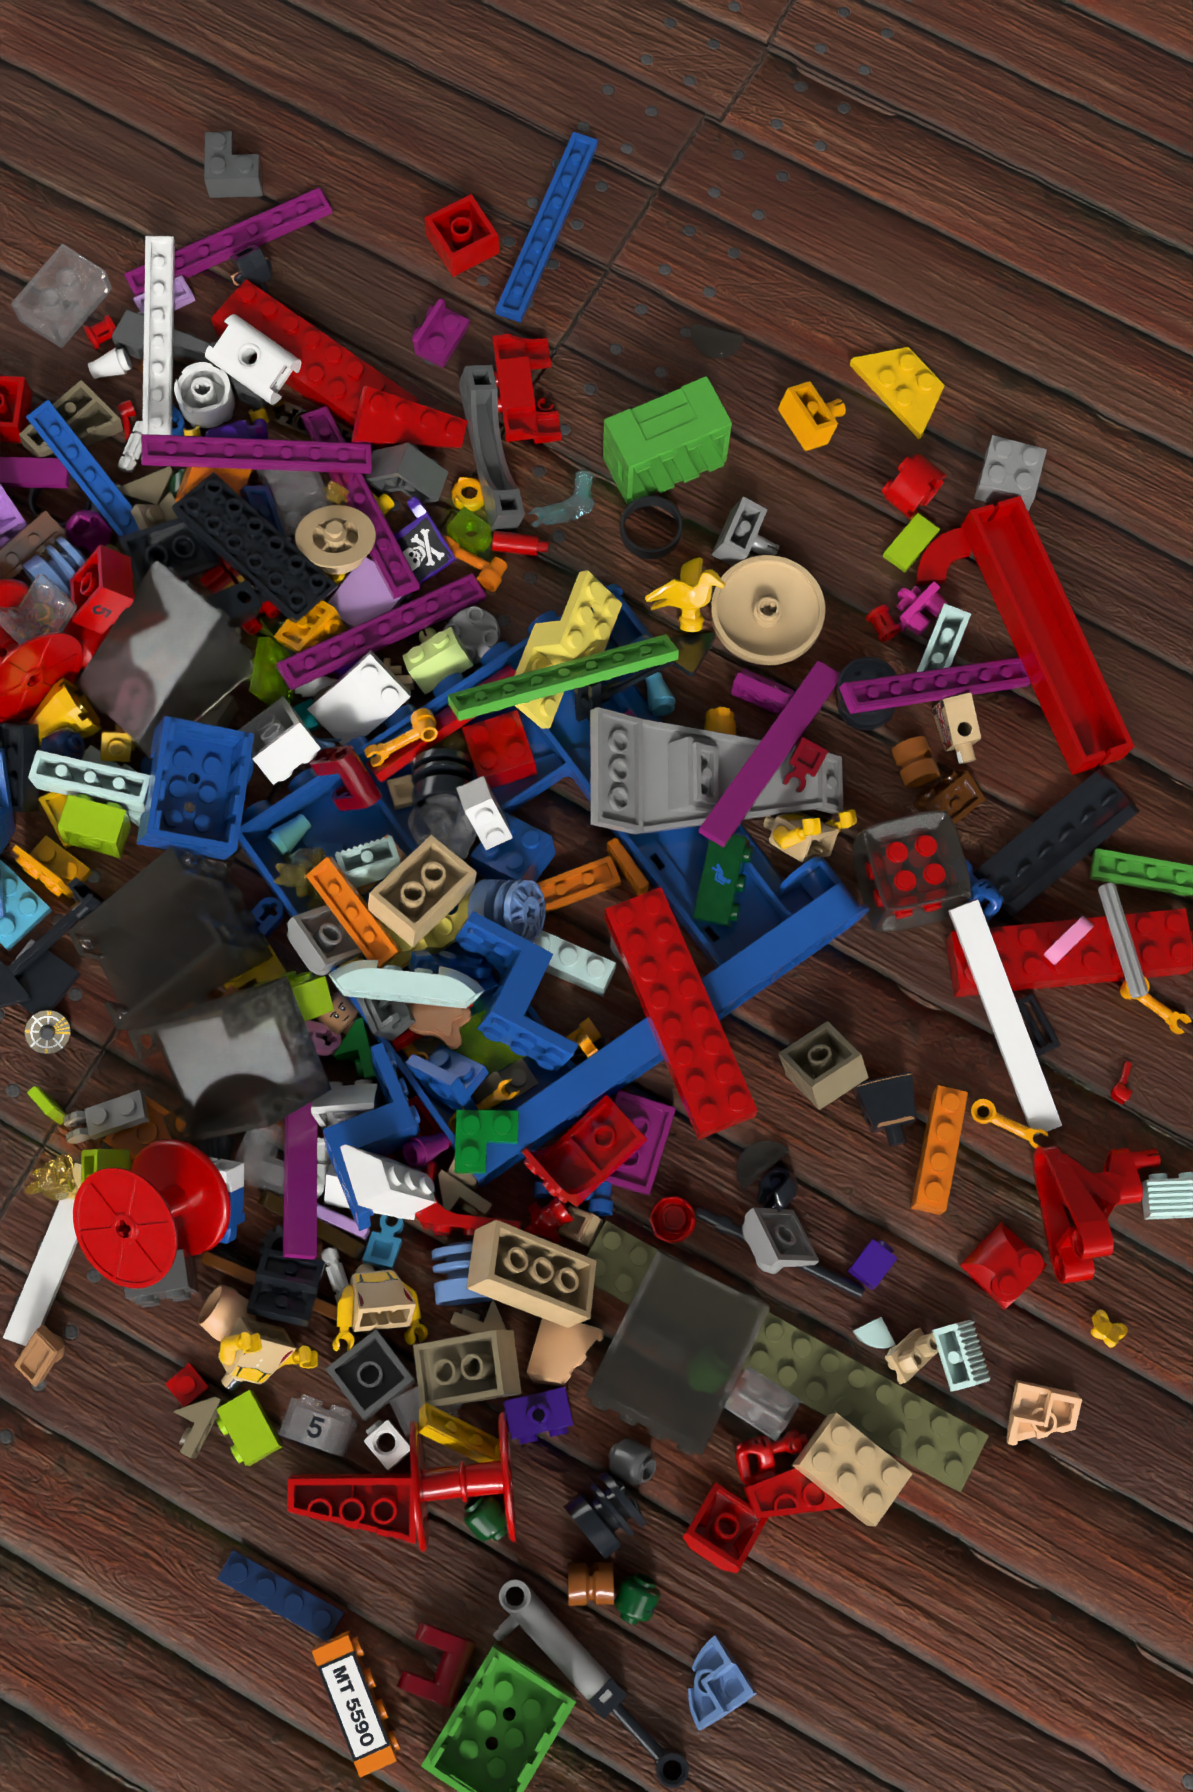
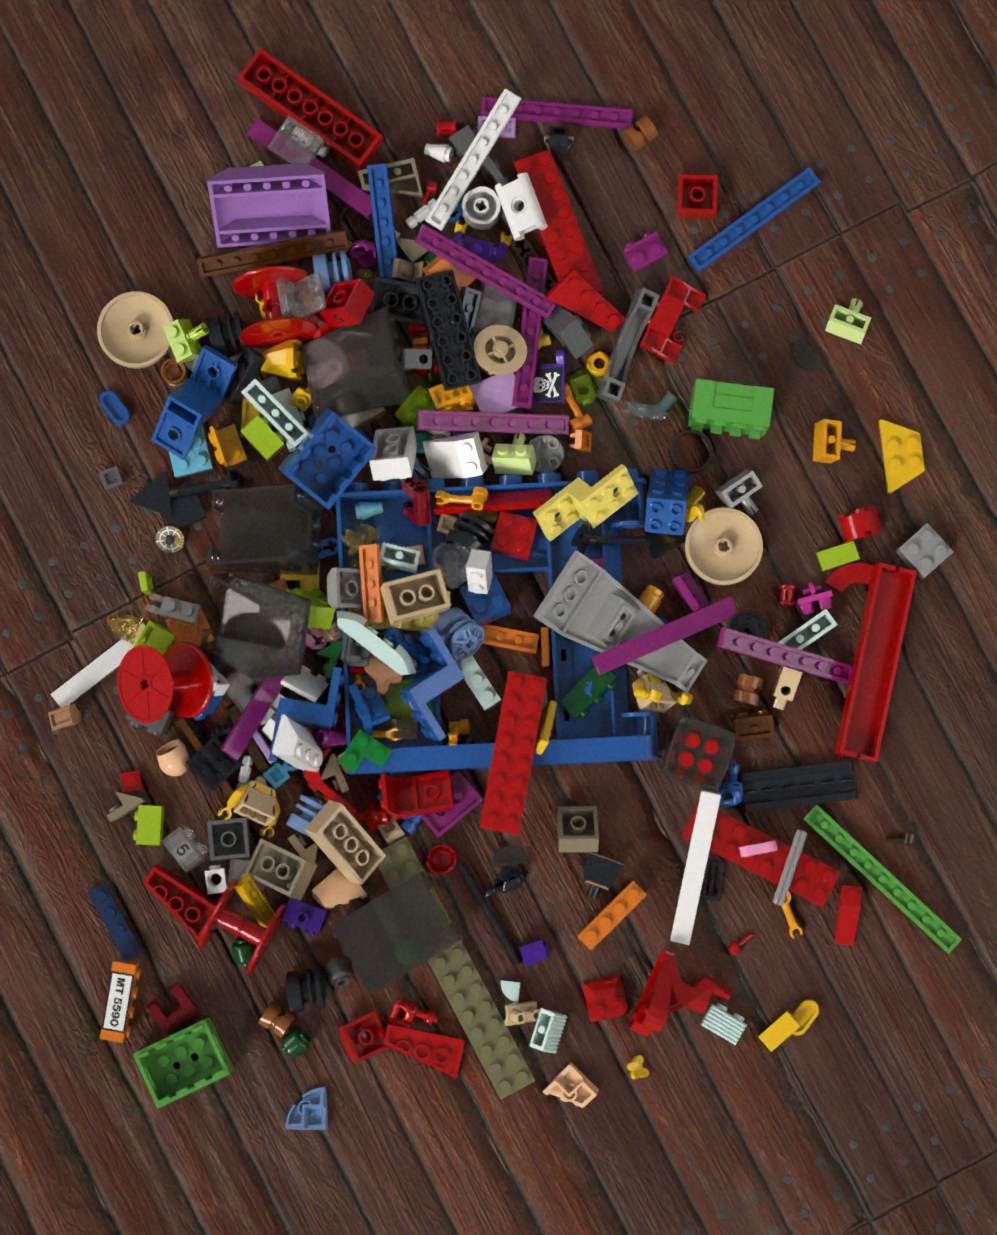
camera: 40 degrees right, 10 degrees up
(62, 295) = (436, 91): clear brick -> none
(64, 742) = (272, 380): dark blue head -> none
(230, 173) = (581, 65): dark grey brick -> none
(257, 1351) = (178, 788): torso -> none
(336, 493) = (517, 322): clear yellow plate -> none
(346, 205) = (641, 132): none -> dark orange wheel
(509, 592) = (582, 440): none -> orange tile
(518, 543) = (607, 413): red cylinder -> none
(562, 677) = (571, 522): bright green plate -> none
(582, 1670) = (244, 1055): light grey piece -> none
(659, 696) = (628, 558): medium azure cone -> none
(666, 594) = (667, 501): none -> blue bracket
(701, 956) = (545, 727): none -> yellow tile
(739, 271) = (848, 322): none -> yellowish green brick
(762, 1403) = (425, 986): clear brick -> none
(777, 1239) = (490, 907): light grey slope -> none
(806, 760) = (682, 653): dark red plate -> none
(852, 1469) = (448, 1051): tan brick -> none
(1000, 1120) = (658, 923): light orange brick -> none

